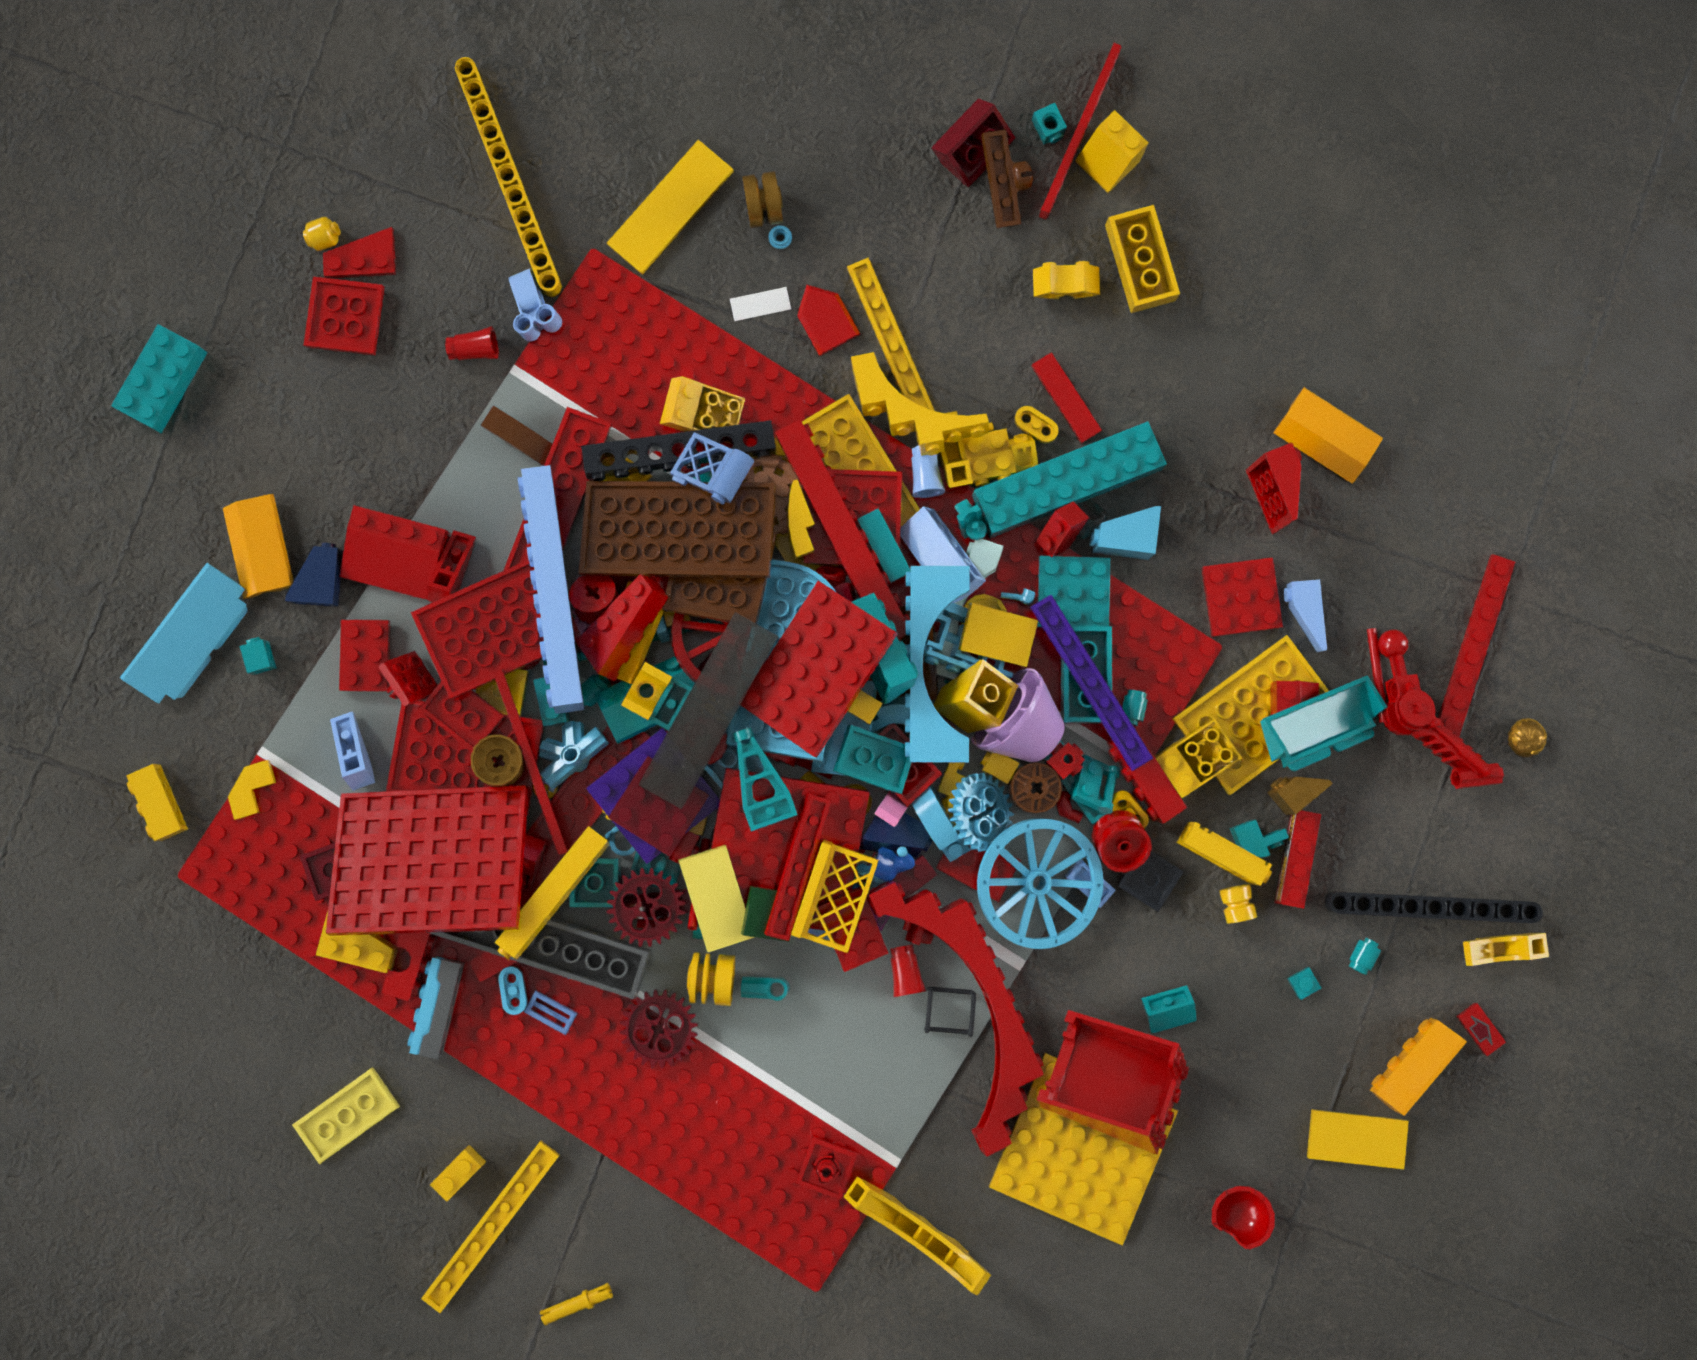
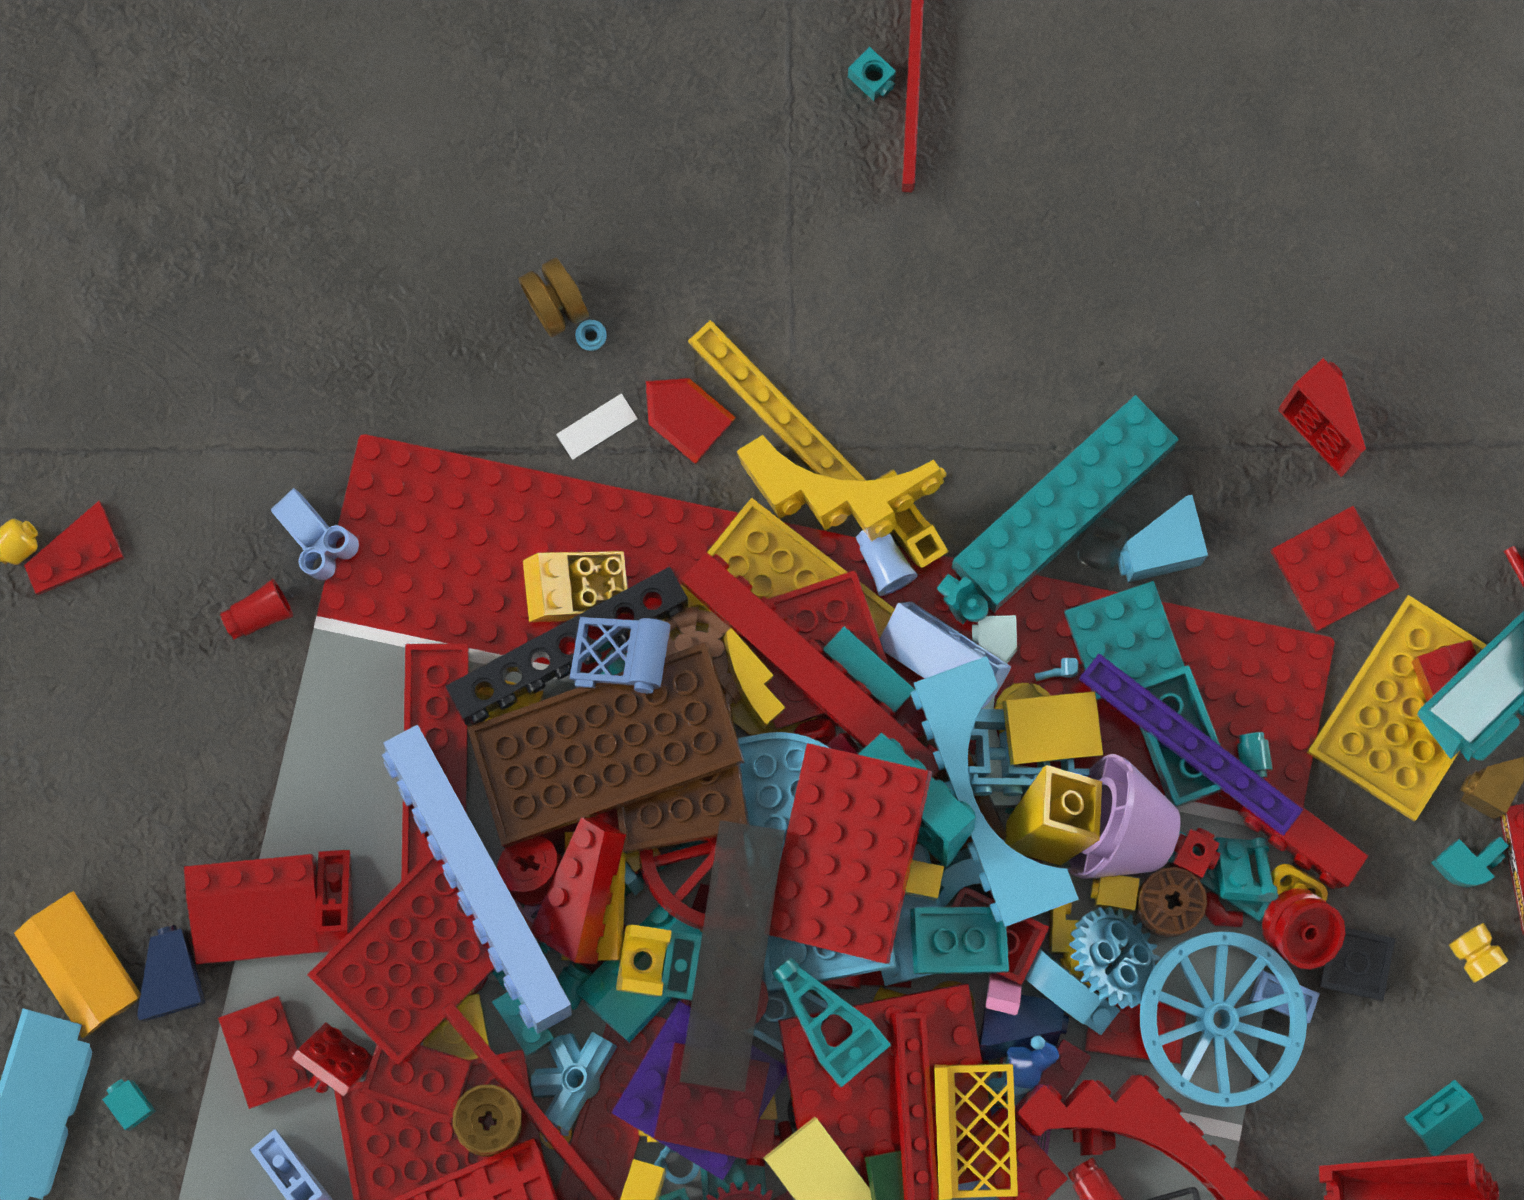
camera: 15 degrees left, 5 degrees down
(344, 316) = (80, 634): red plate -> none
(507, 166) = (217, 371): yellow beam -> none
(517, 435) = (356, 703): reddish brown slope -> none
(670, 207) = (439, 348): yellow tile -> none
(962, 144) = (787, 130): dark red slope -> none
(989, 457) = (956, 511): yellow plate -> none
(1004, 178) = (842, 161): reddish brown plate -> none
(1023, 451) = (995, 489): yellow bracket -> none
(1037, 422) = (998, 446): yellow plate -> none
(1061, 280) = (974, 256): yellow brick -> none
(1062, 529) = (1080, 567): red brick -> none
(1066, 398) = (1022, 403): red tile -> none
(1112, 151) = (963, 81): yellow slope -> none
(1142, 259) = (1050, 198): yellow brick -> none
(1198, 757) = (1357, 788): yellow slope -> none
(1224, 854) = (1437, 896): yellow door -> none
(1307, 607) = (1420, 552): light blue slope -> none
(1328, 435) = (1363, 330): light orange slope -> none

